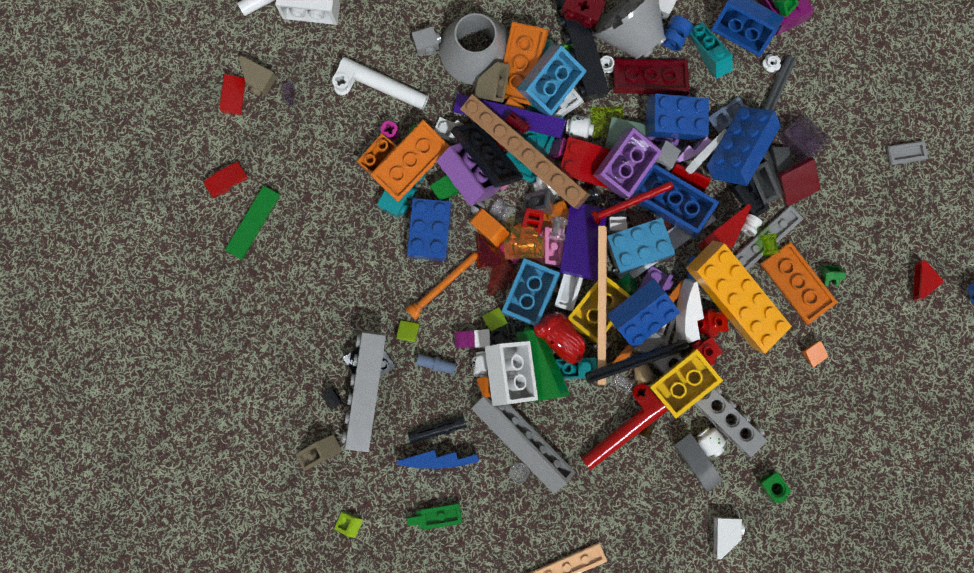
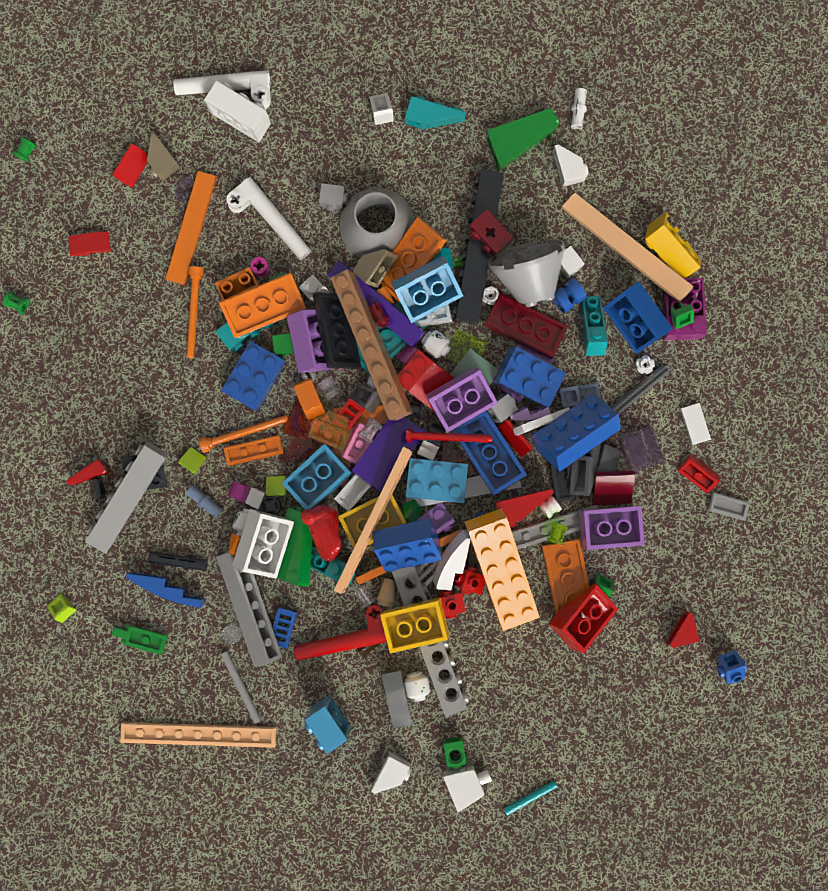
camera: 20 degrees right, 5 degrees up
(128, 123) = (24, 149): none -> green bush
(181, 262) = (21, 305): none -> green bush
(252, 222) = (97, 295): green tile -> none
(311, 125) = (191, 227): none -> orange tile
(319, 452) = (63, 533): dark tan slope -> none
(320, 383) = (93, 470): none -> red slope
(334, 163) = (196, 274): none -> orange piece
(459, 297) = (253, 450): none -> orange tile
(549, 520) = (241, 687): none -> light grey bar
(556, 430) = (288, 612): none -> blue slope
(636, 361) = (380, 585): black axle -> none
(647, 511) = (327, 724): none -> dark azure brick
(800, 513) = (465, 785): none -> white torso
(815, 217) = (611, 527): none -> medium lavender brick
(815, 353) = (551, 650): slope -> none
(831, 310) = (583, 618): none -> red slope
(841, 94) = (695, 424): none -> white tile
(863, 497) = (530, 797): none -> teal bar
(867, 136) = (699, 473): none -> red slope

